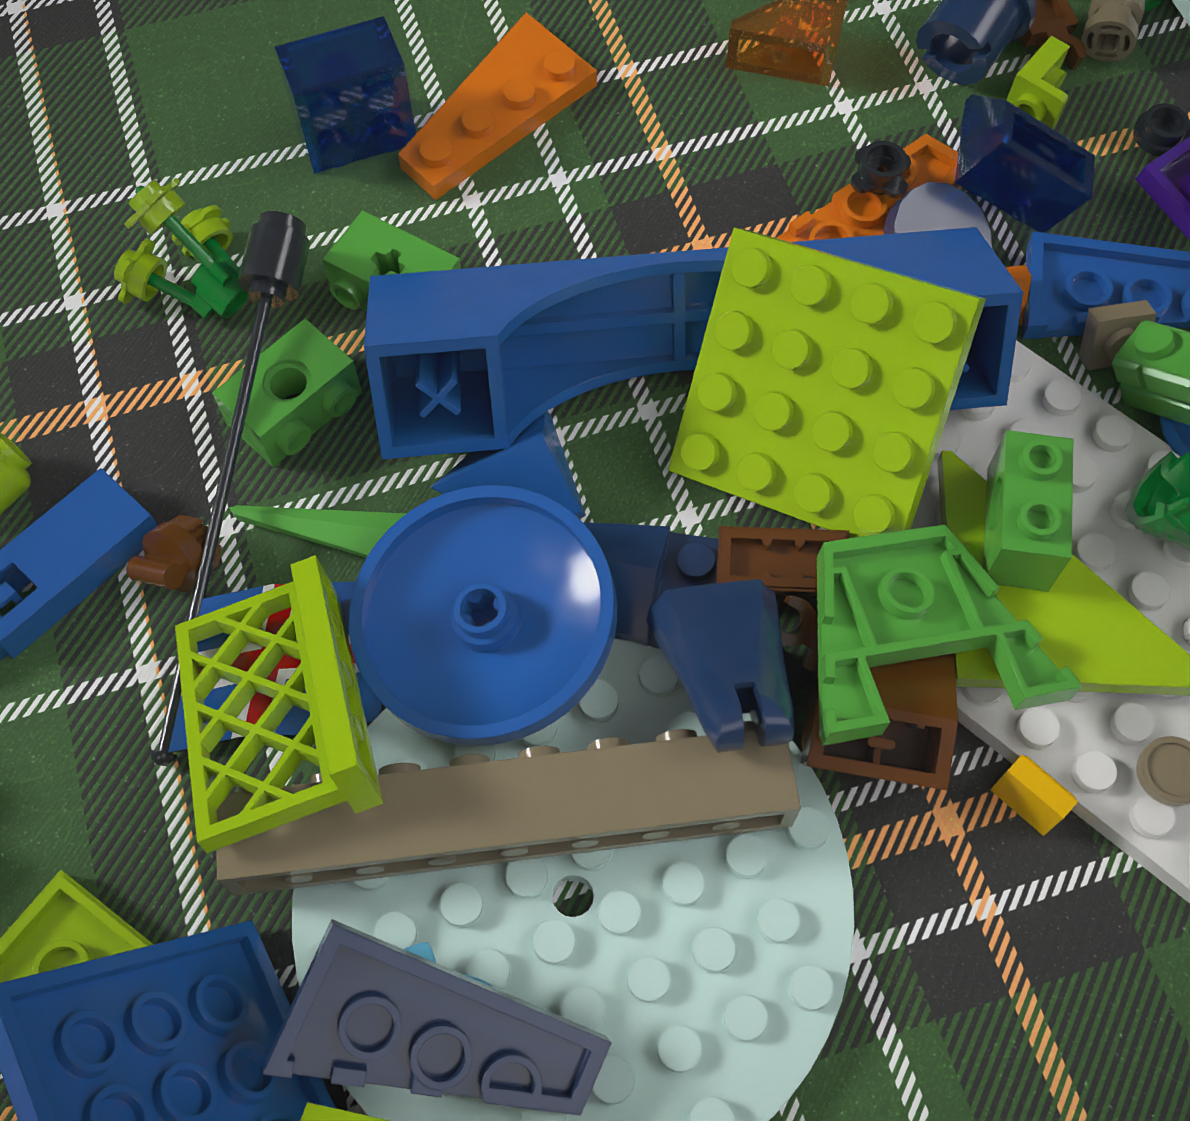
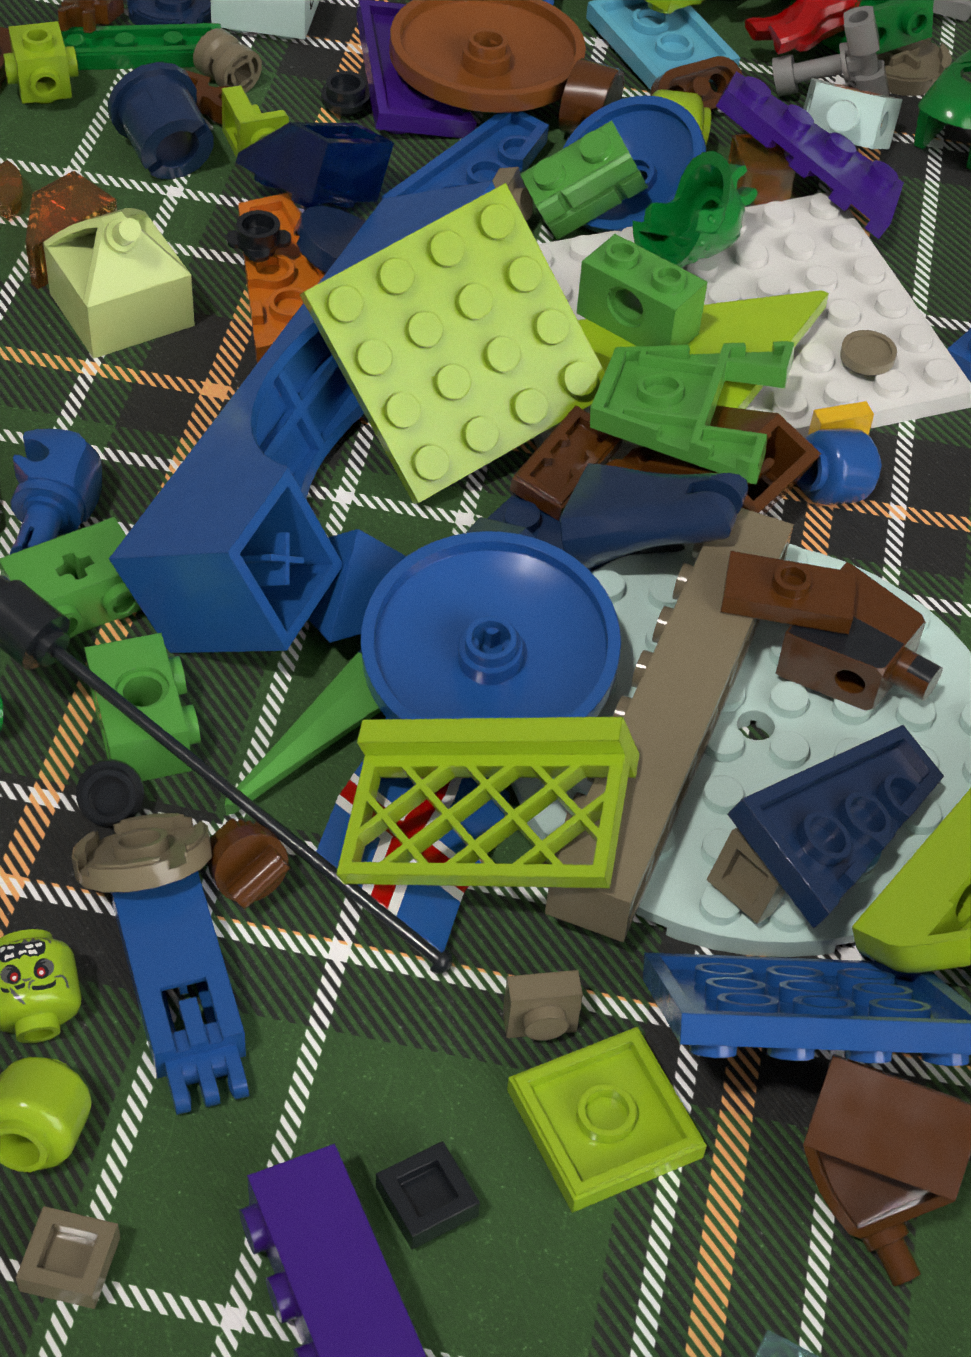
camera: 65 degrees left, 15 degrees down
(132, 477) = (142, 853): none -> dark tan tile
(135, 861) = (542, 1004): none -> dark tan plate
(195, 422) = (109, 792): none -> black plate
(480, 208) = (55, 486): none -> blue piece
(686, 847) = (789, 592): none -> reddish brown plate
(704, 948) = (870, 658): none -> reddish brown torso
(751, 109) = (118, 281): none -> yellowish green piece
(981, 817) = (844, 470): none -> blue head

